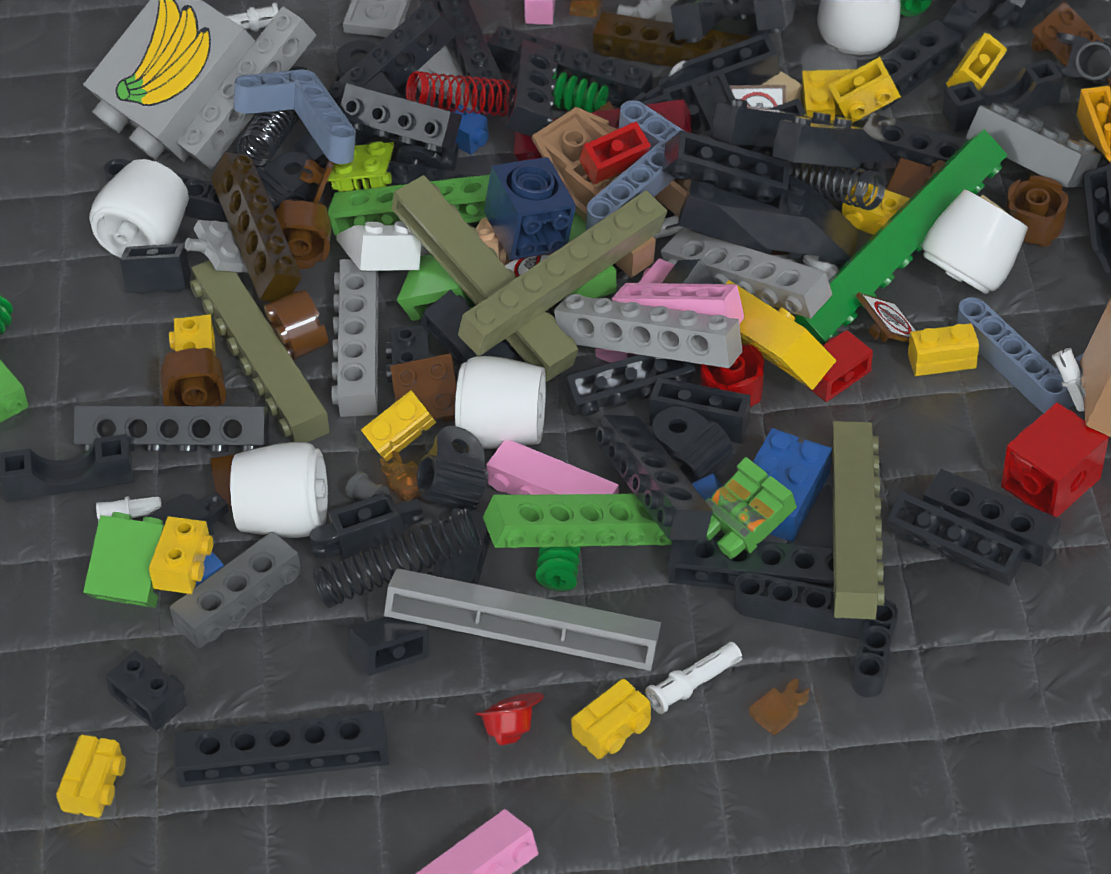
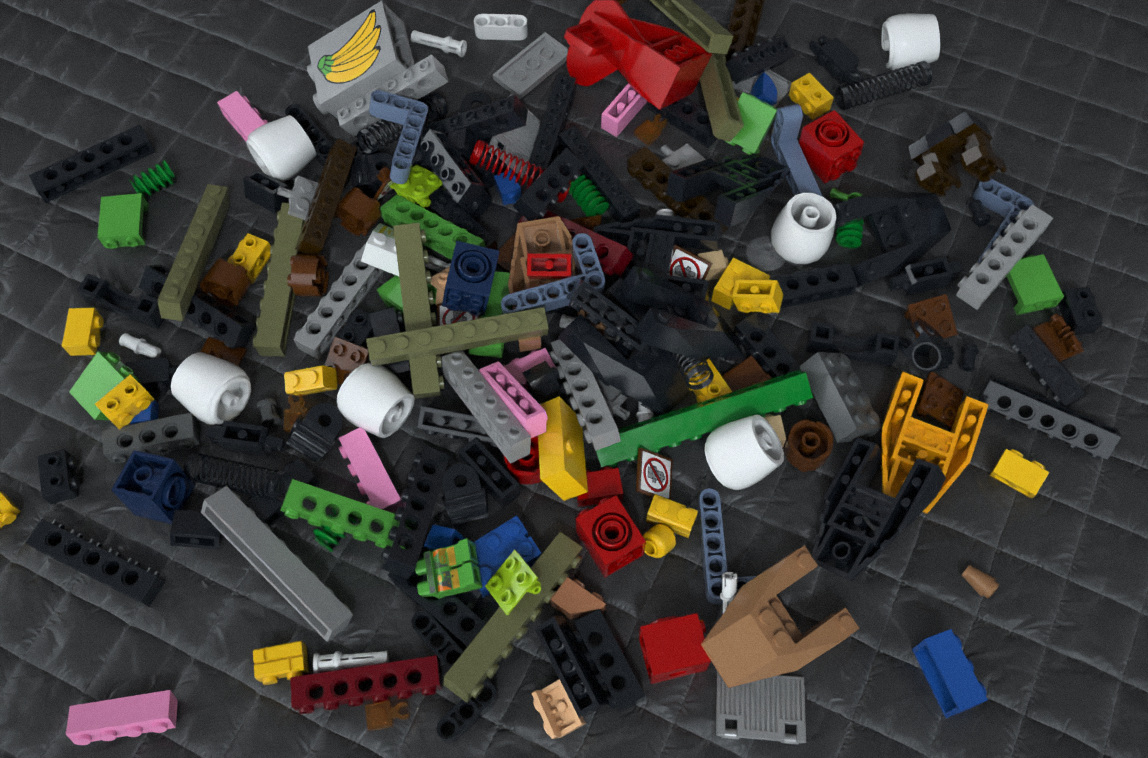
camera: 30 degrees right, 15 degrees up
(39, 526) = (82, 331): none -> yellow brick
(48, 210) = (240, 114): none -> bright pink brick
(130, 361) = (194, 253): none -> olive brick
(301, 620) = (153, 486): none -> dark blue brick
(510, 717) = (225, 622): red piece -> none
(778, 648) = (304, 686): none -> dark red brick
(830, 476) = (512, 582): none -> lime hinge
(895, 395) = (606, 522): none -> red brick
(906, 475) = (575, 601): none -> nougat slope
(948, 379) = (659, 541): none -> yellow head
(975, 588) = (556, 710): none -> light nougat bracket
(978, 62) = (852, 312): yellow brick -> none

